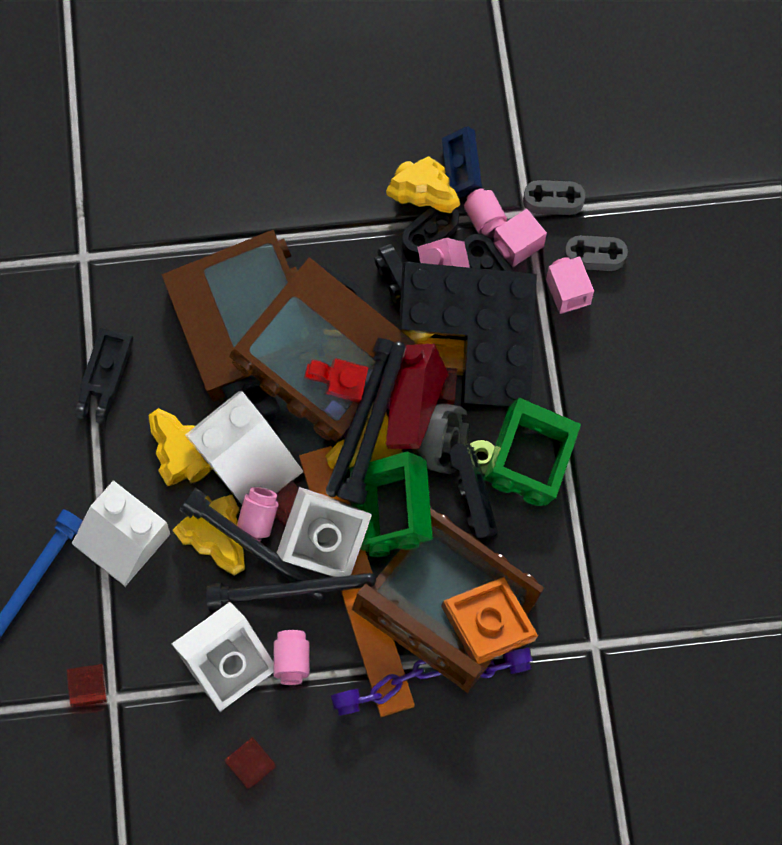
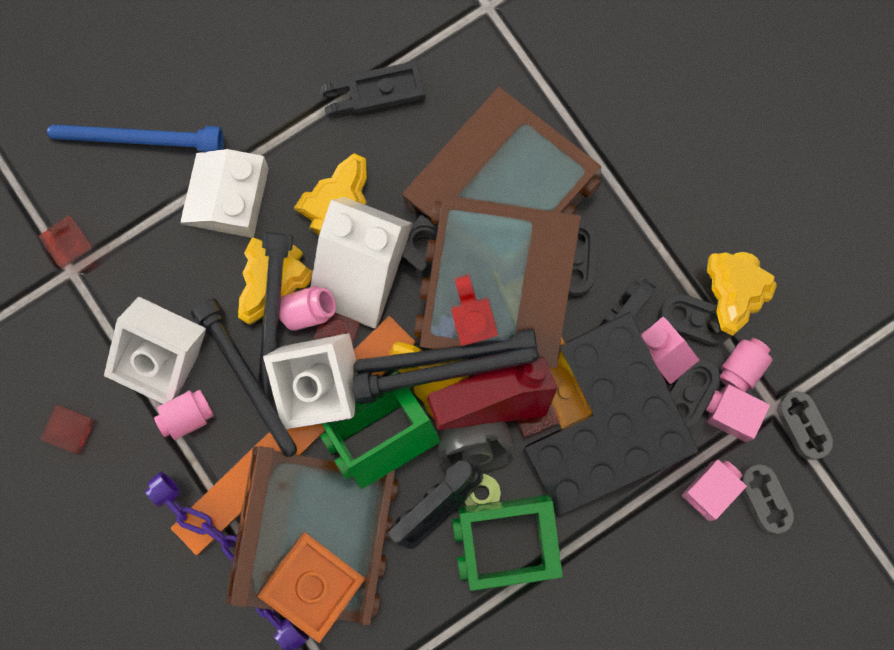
camera: 60 degrees right, 10 degrees up
(462, 161) = (788, 313): dark blue plate -> none

